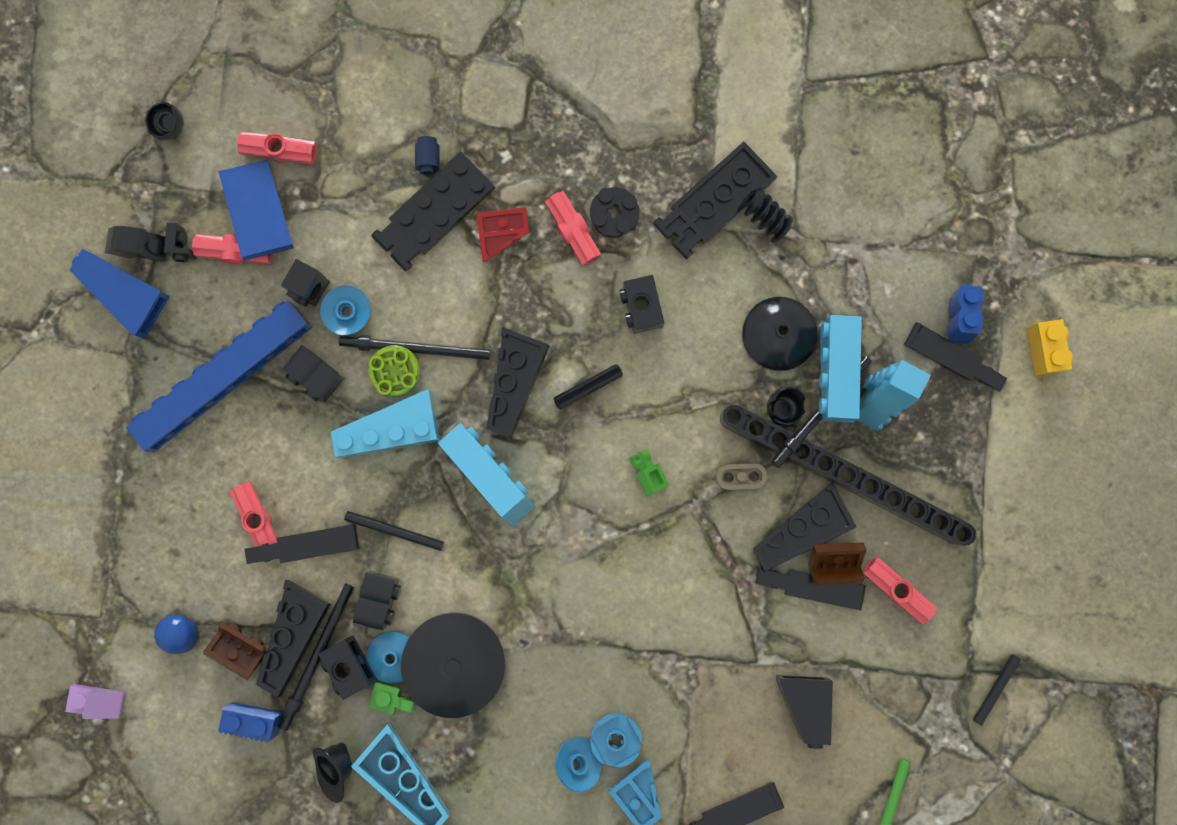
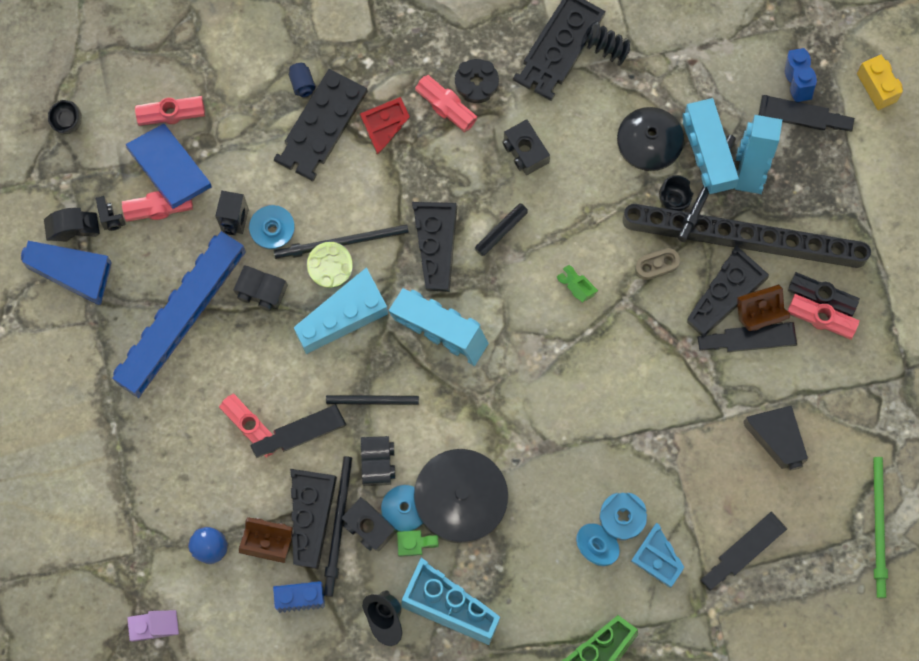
camera: 15 degrees left, 10 degrees down
(919, 576) = (810, 288): none -> black piece

